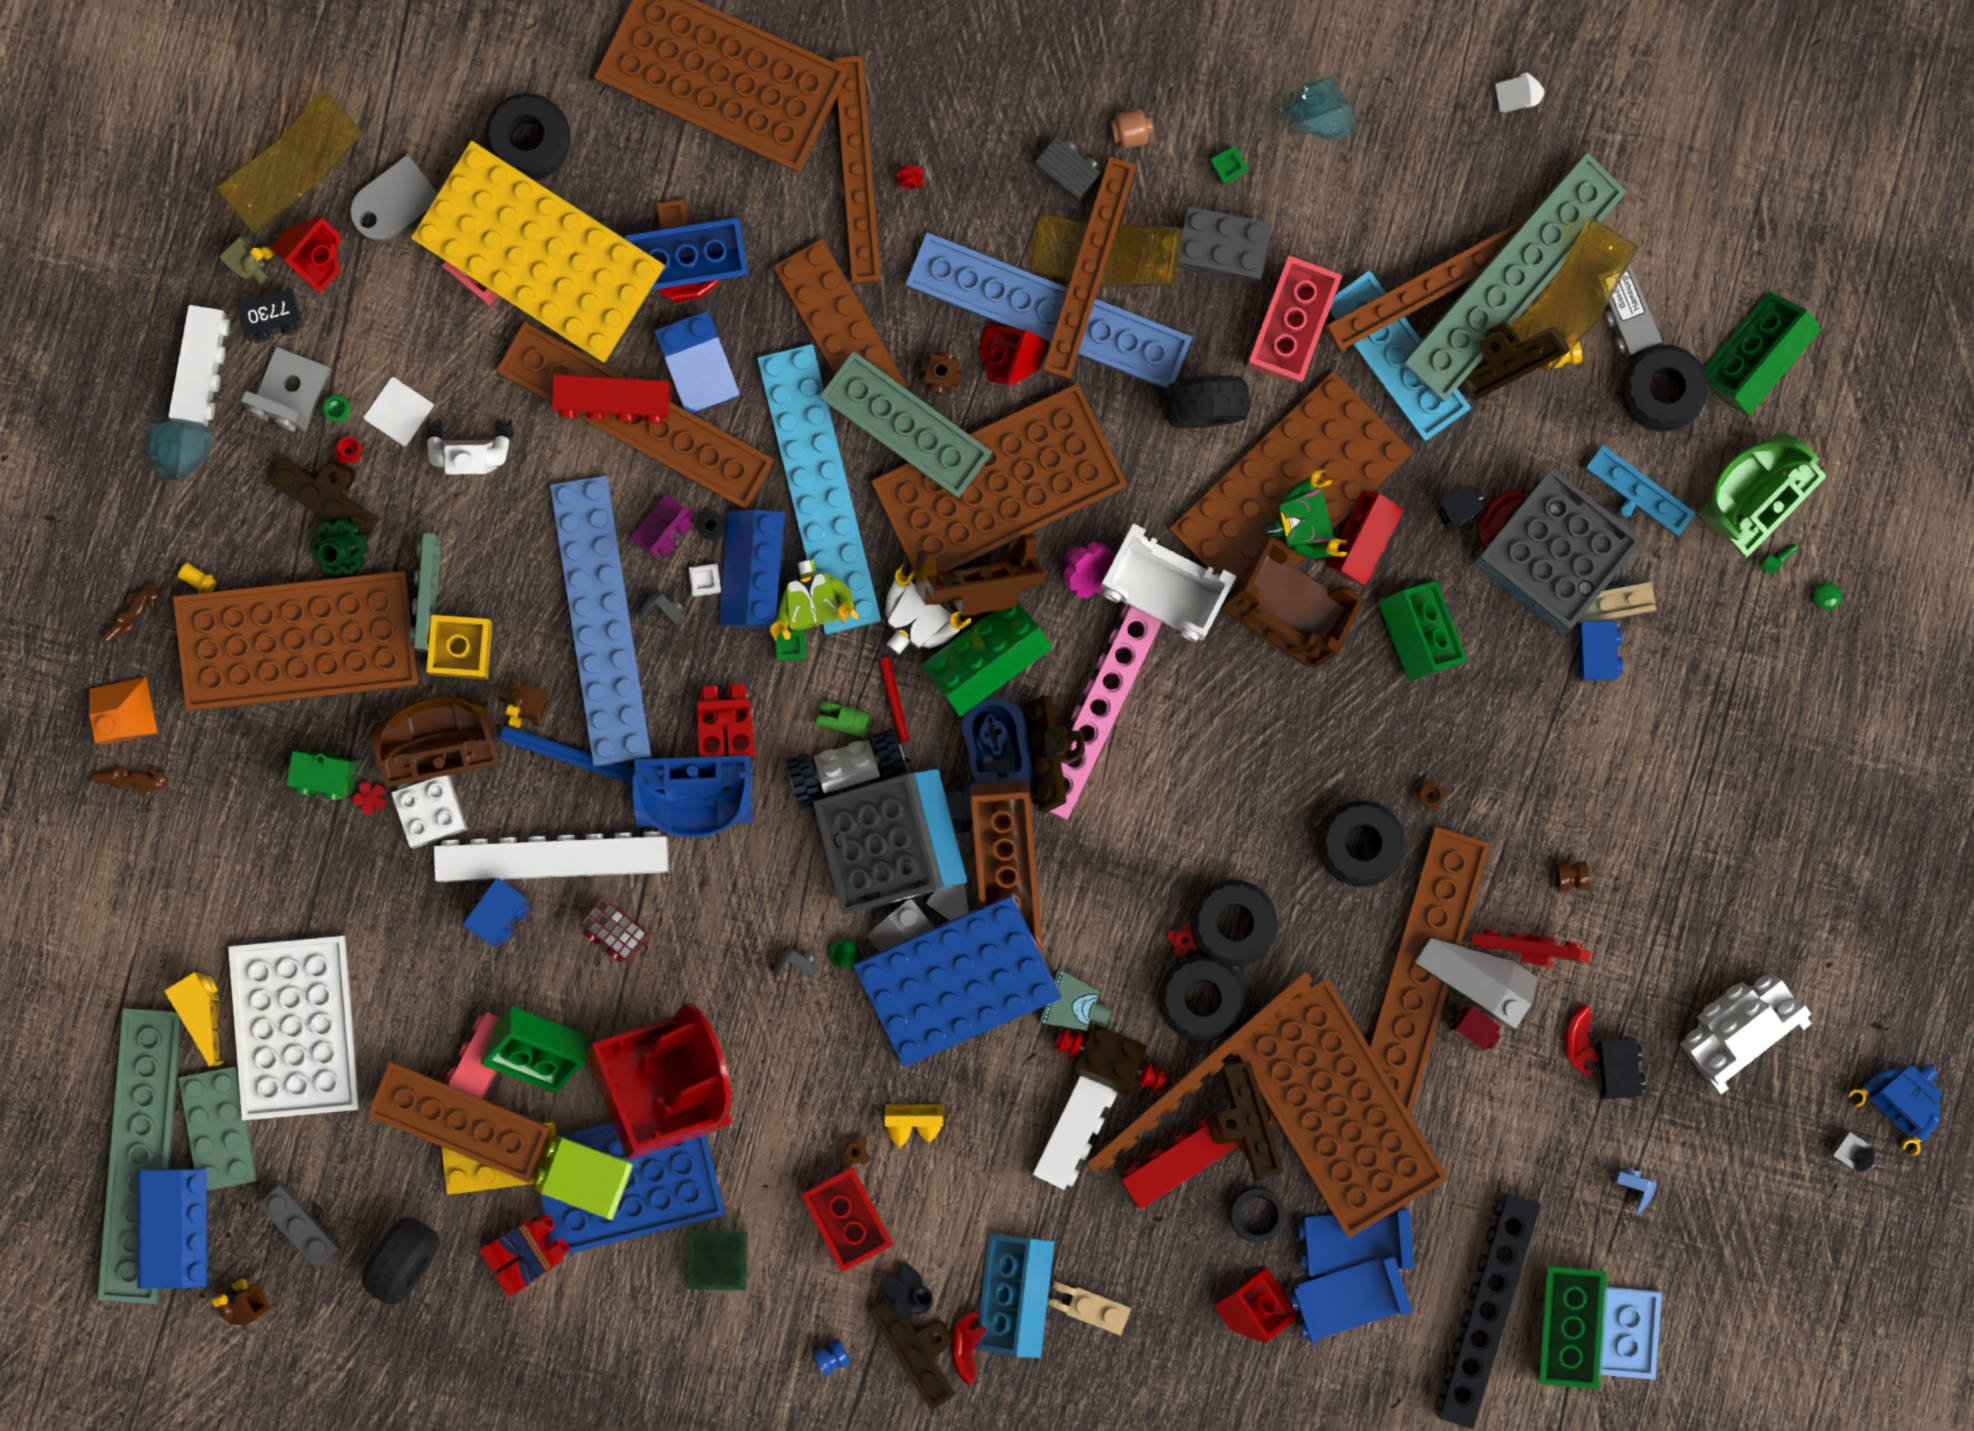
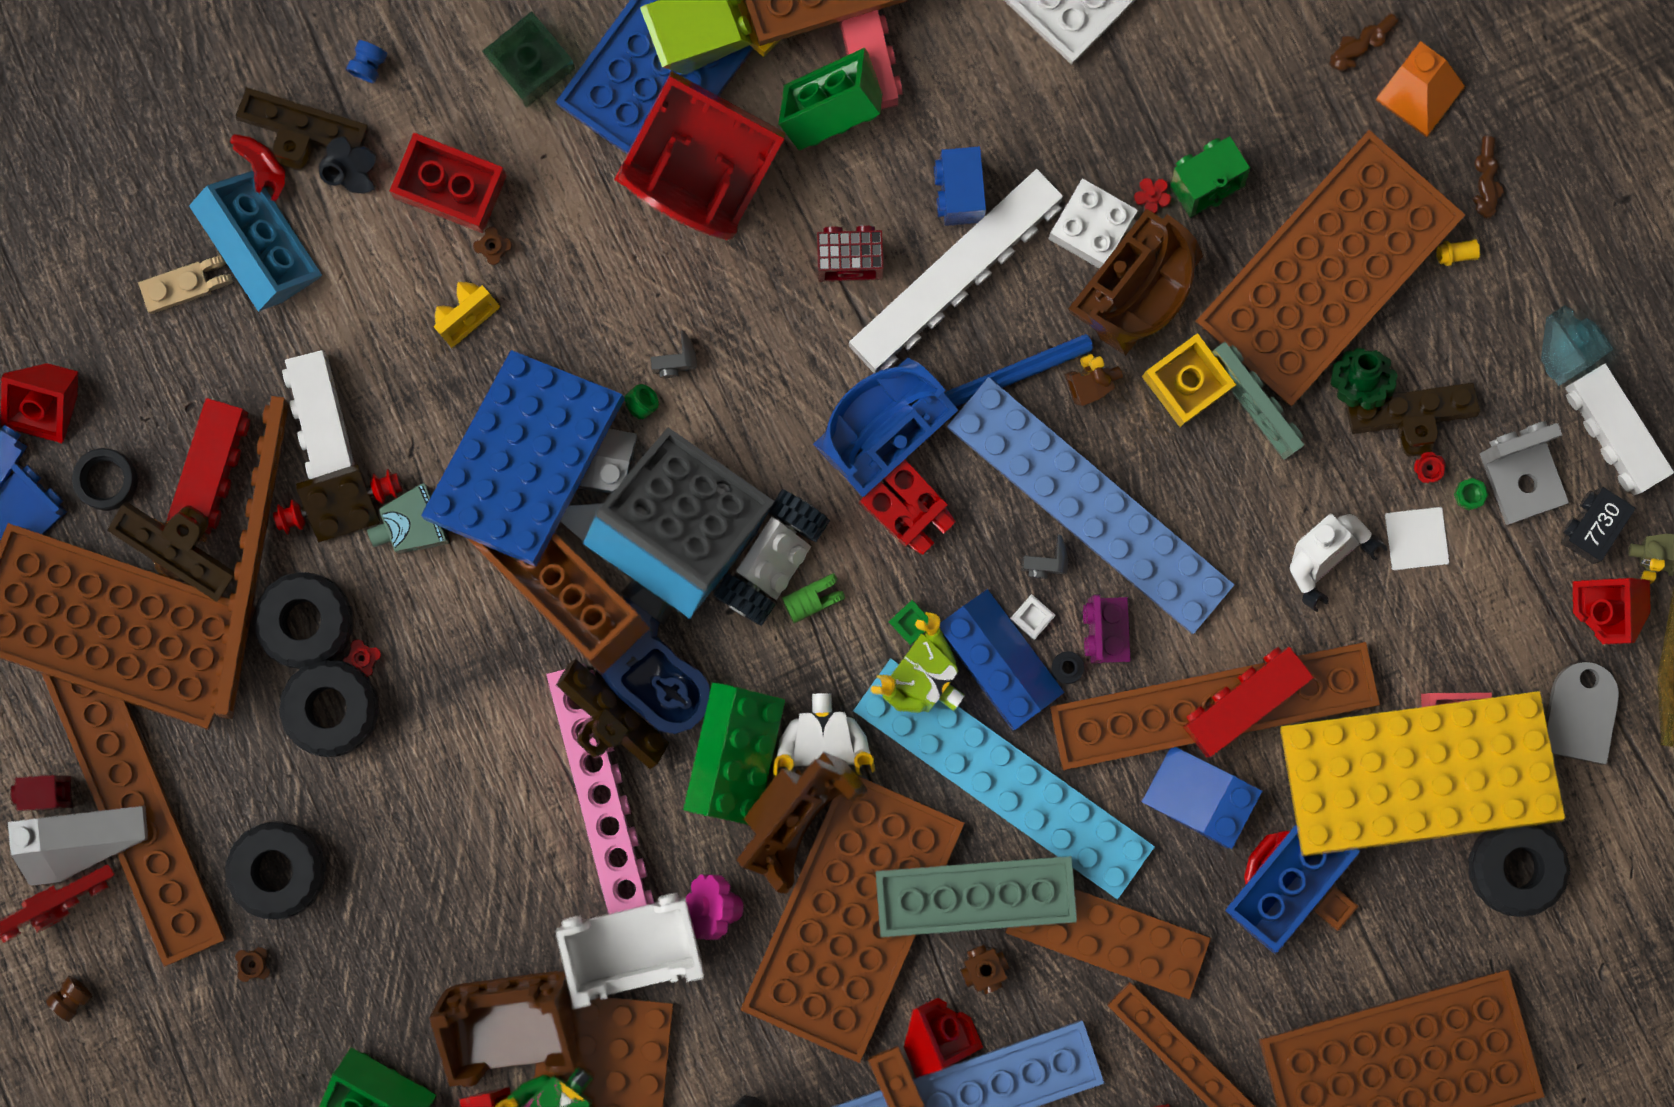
camera: 140 degrees right, 0 degrees up
(894, 700) = (783, 652): red piece -> none

